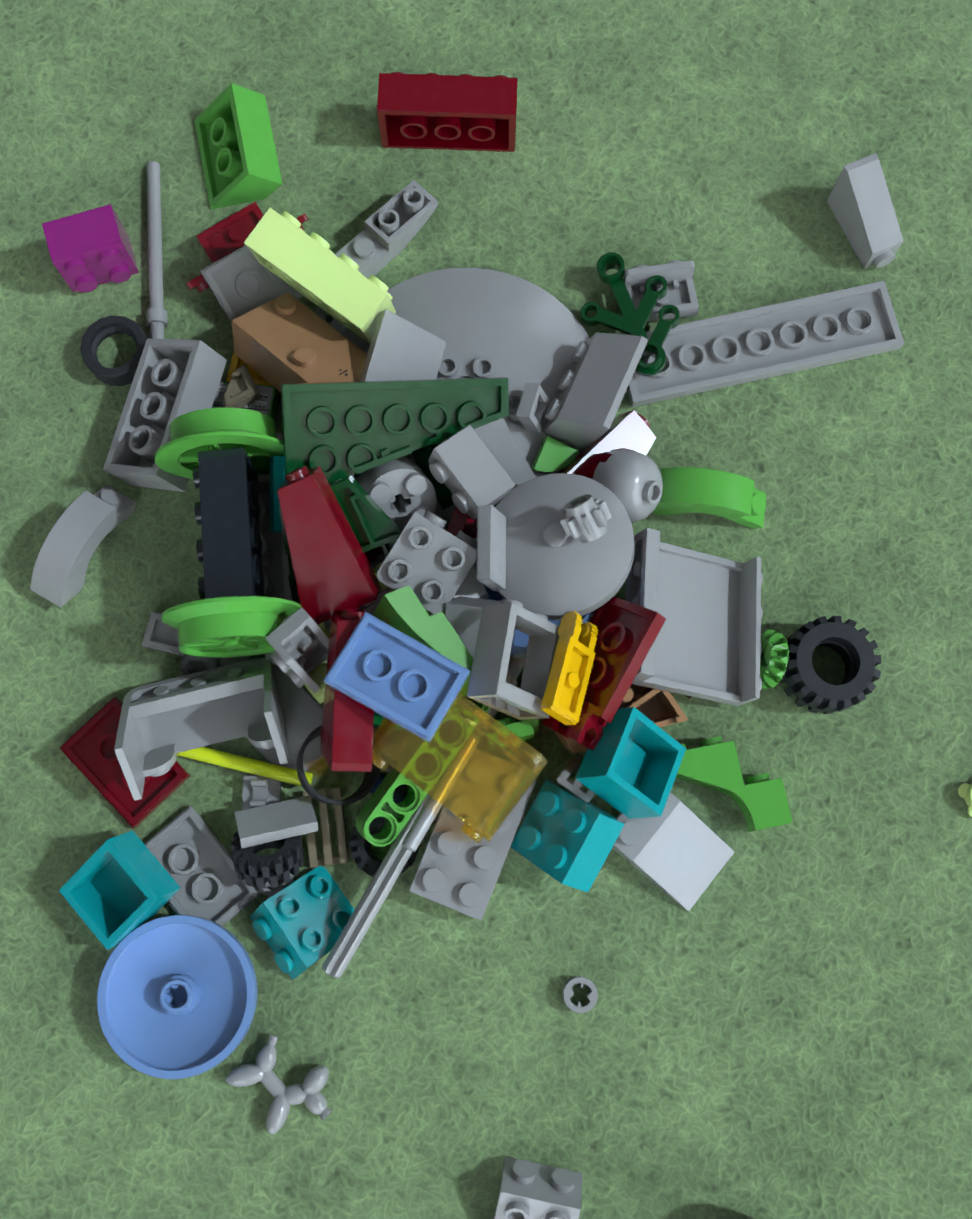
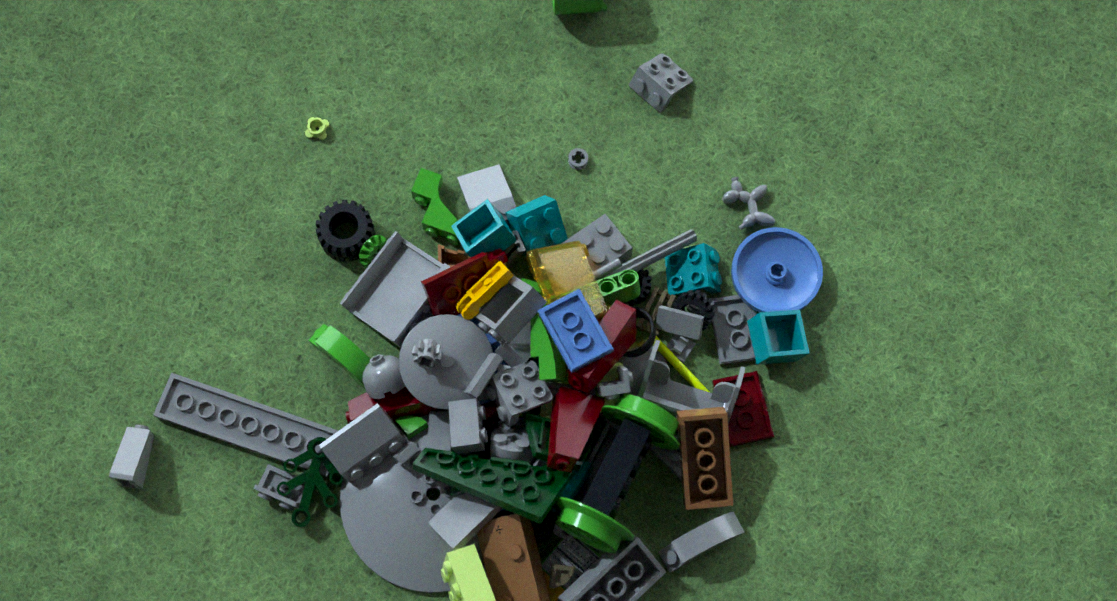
camera: 150 degrees left, 5 degrees down
(128, 644) = (705, 458): none -> medium nougat brick

